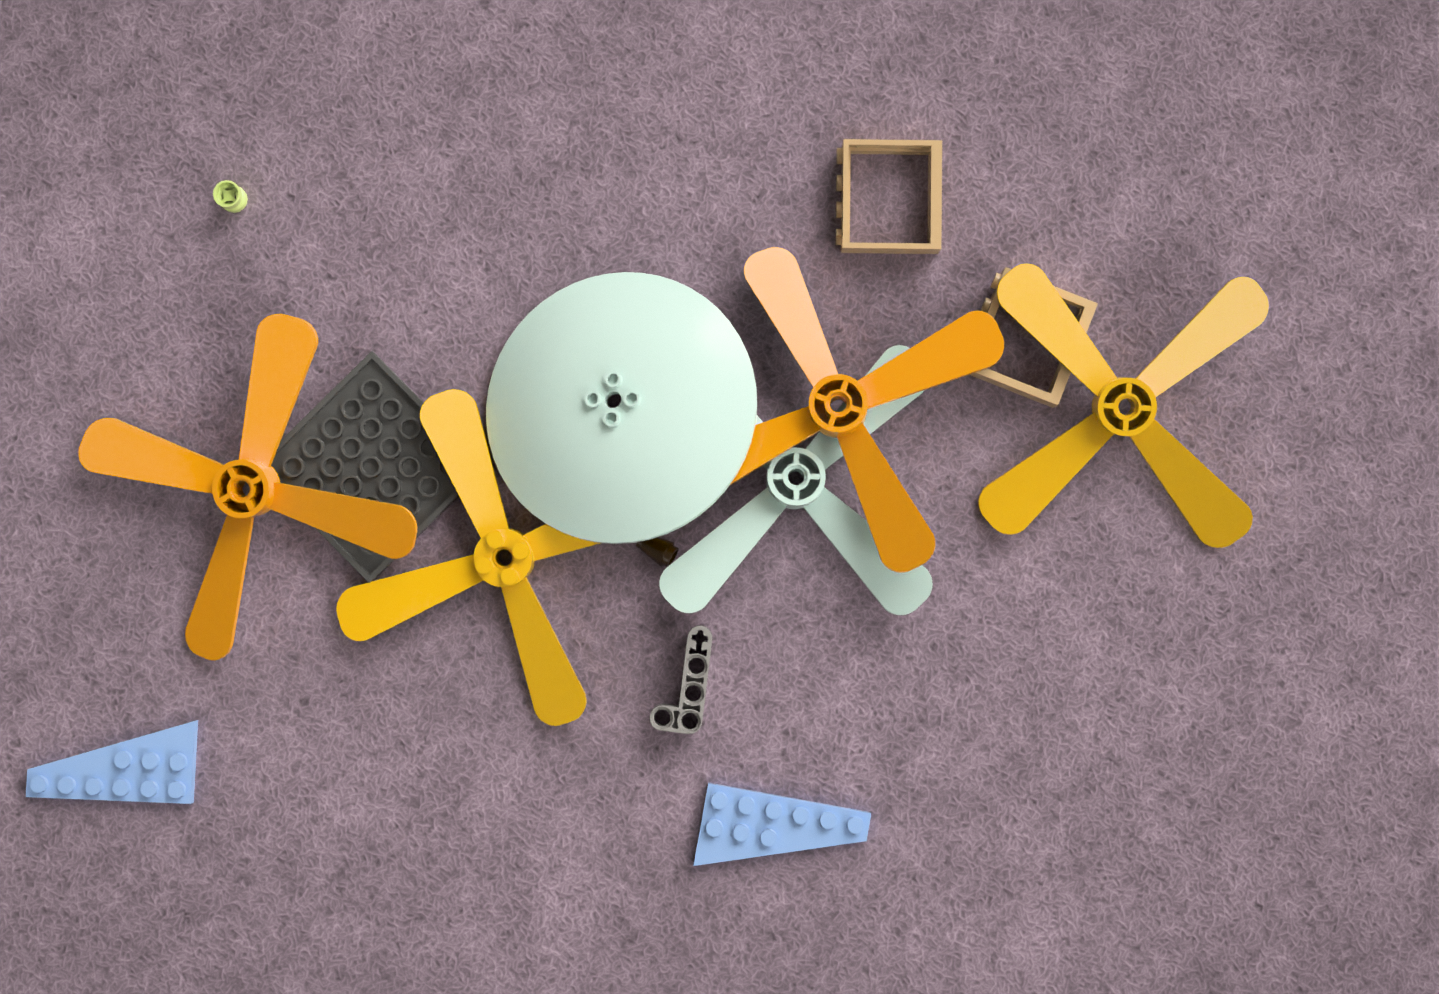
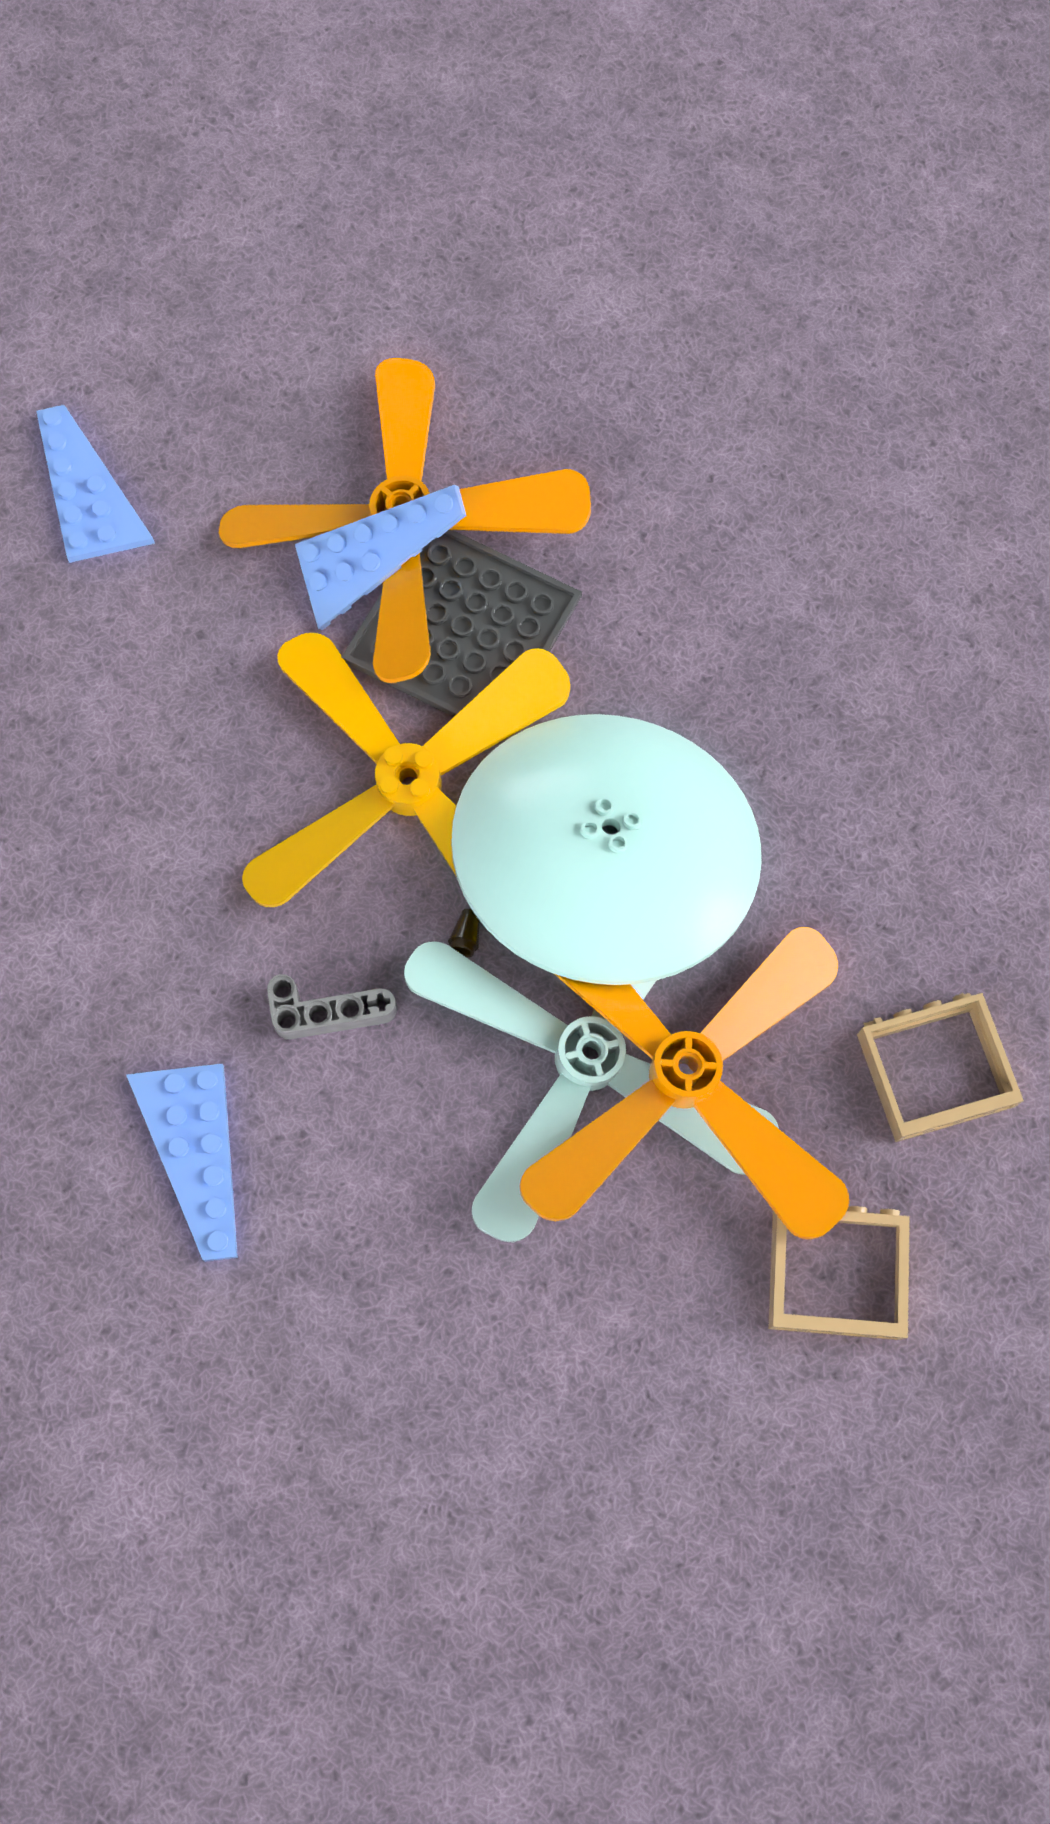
camera: 65 degrees right, 15 degrees down
(225, 192) = (690, 422): yellowish green wheel -> none
(281, 538) = (365, 553): none -> light blue wing
(1201, 497) = (721, 1544): yellow piece -> none

